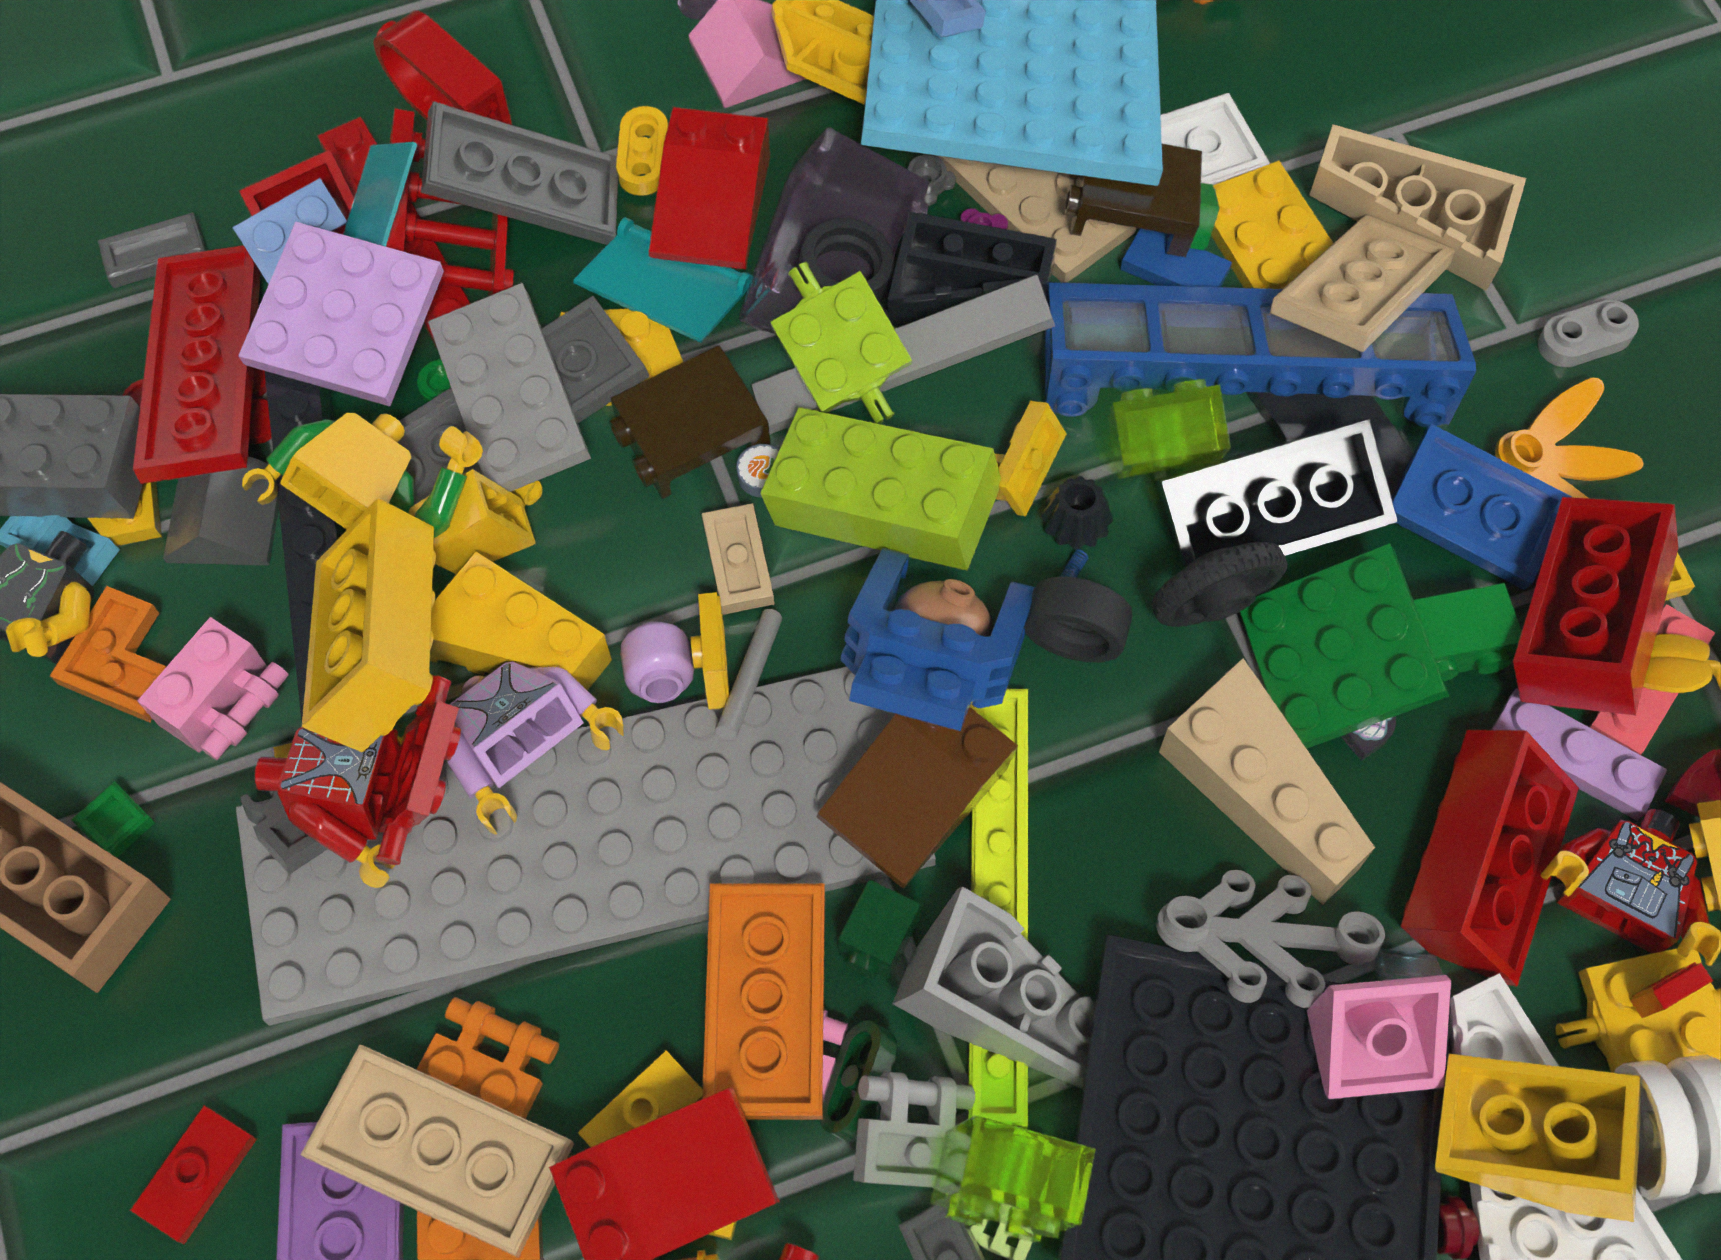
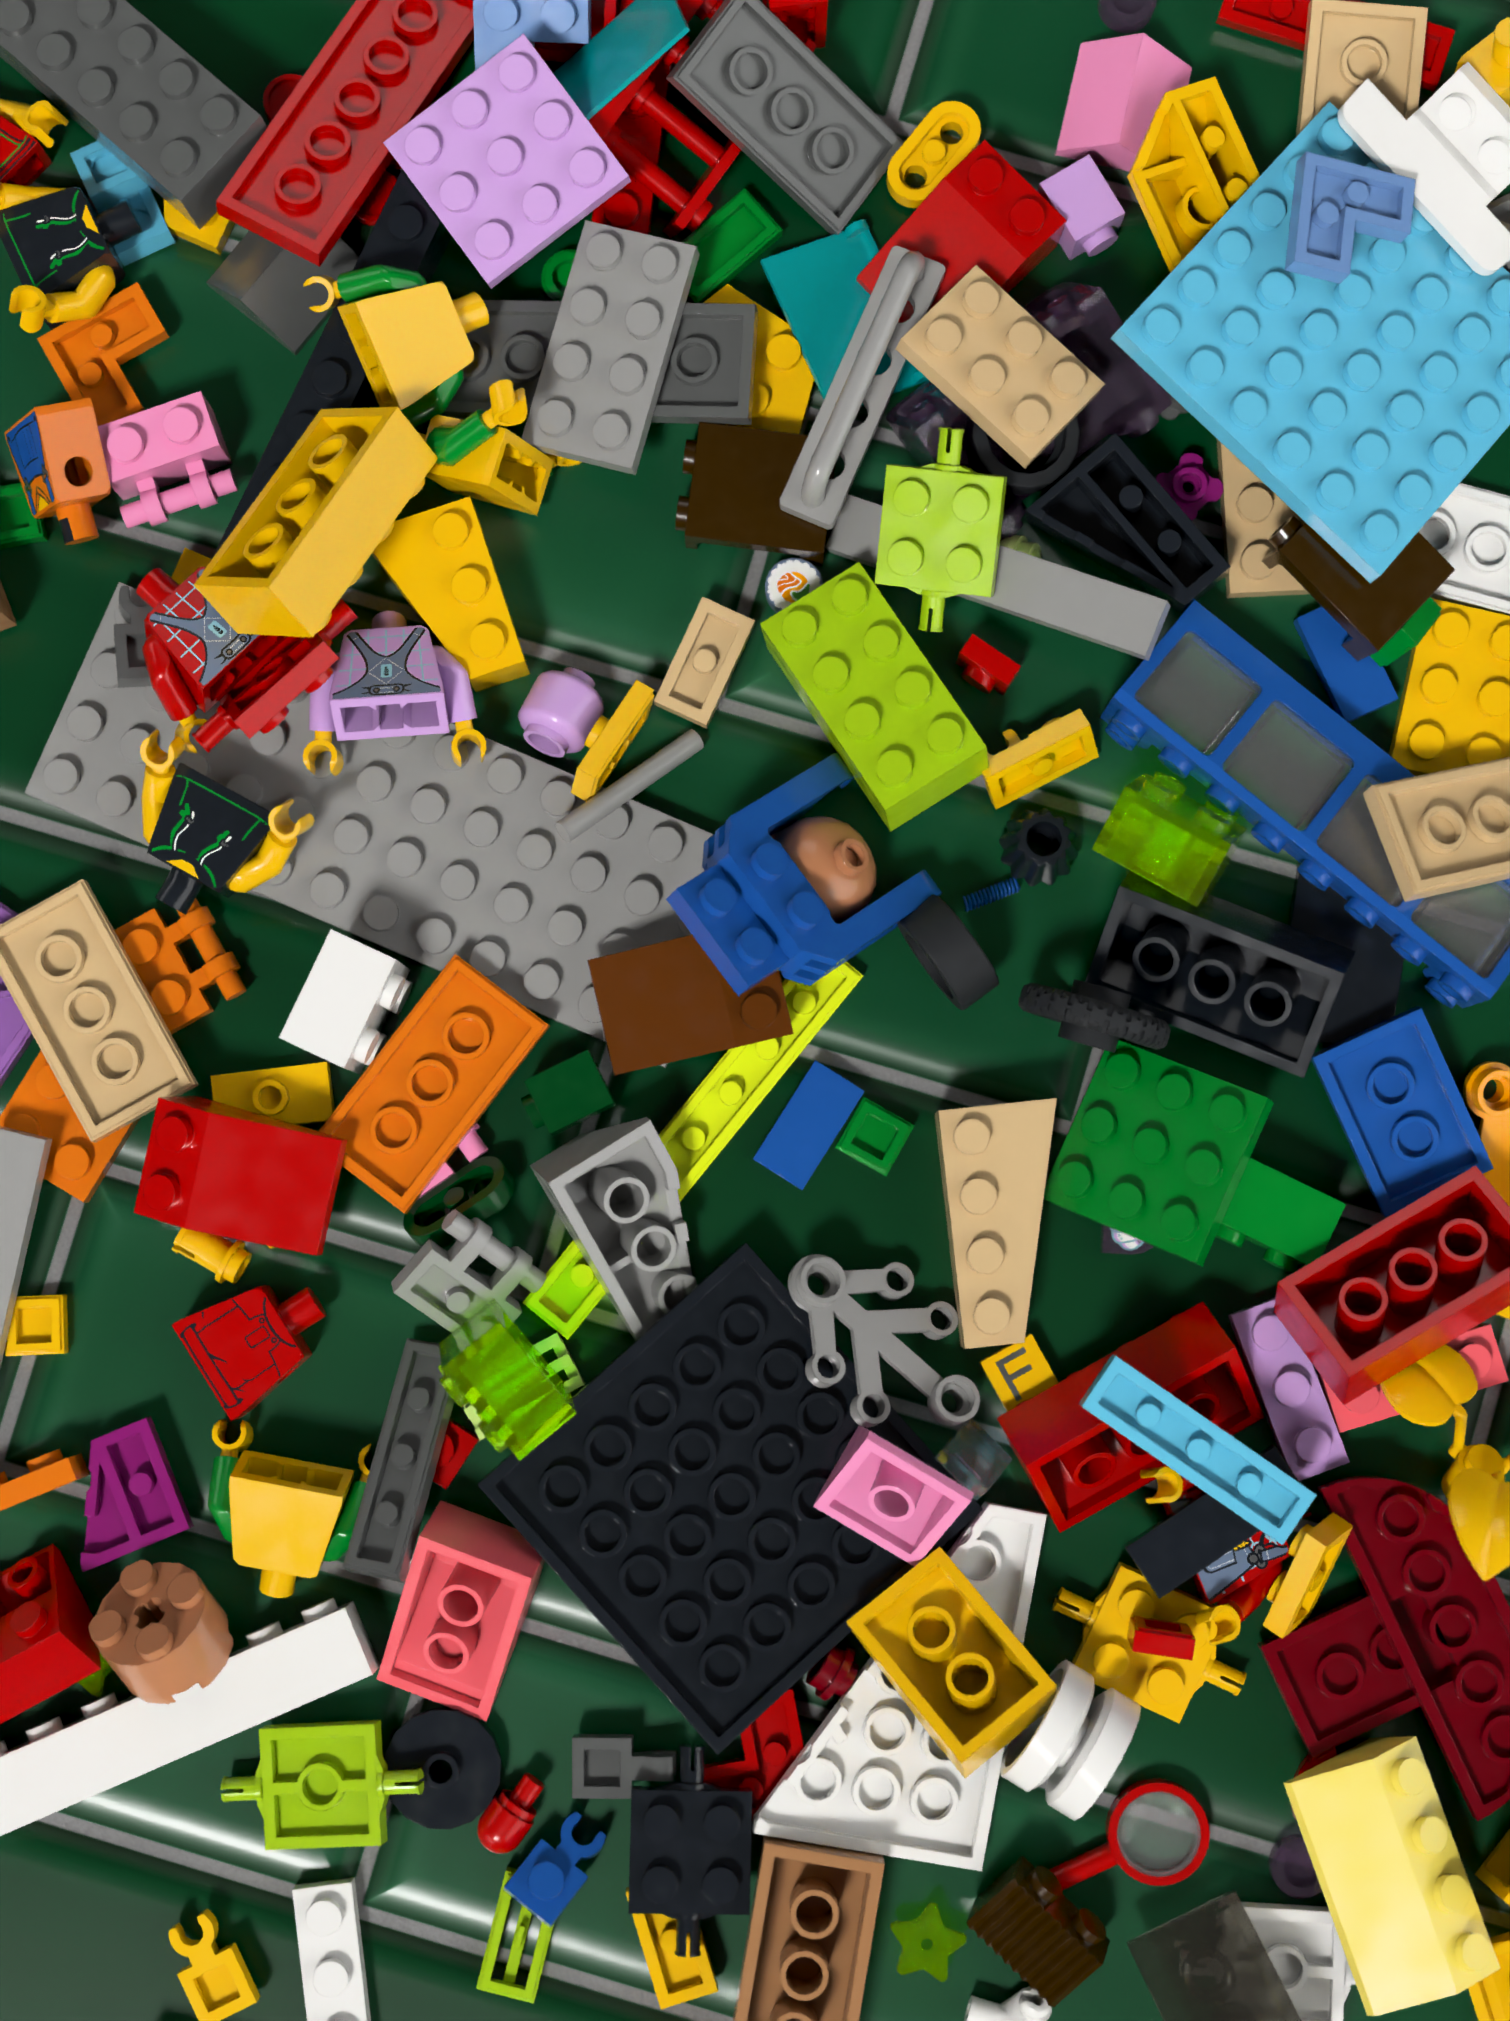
camera: 40 degrees right, 20 degrees up
(128, 743) = (61, 465): none -> orange torso
(443, 927) = (209, 830): none -> torso
(547, 282) = (729, 244): none -> green tile
(649, 982) = (347, 1003): none -> white brick
(725, 340) = (809, 490): none -> light grey piece
(781, 107) = (1087, 205): none -> lavender brick
(796, 222) = (1000, 366): none -> tan plate
(943, 419) = (986, 666): none -> red plate
(1076, 825) = (808, 1125): none -> blue tile
(1131, 798) = (874, 1136): none -> green tile
(1382, 889) = (1018, 1372): none -> yellow tile
(1571, 817) = (1197, 1449): none -> medium azure plate
(1626, 872) = (1192, 1537): none -> black tile

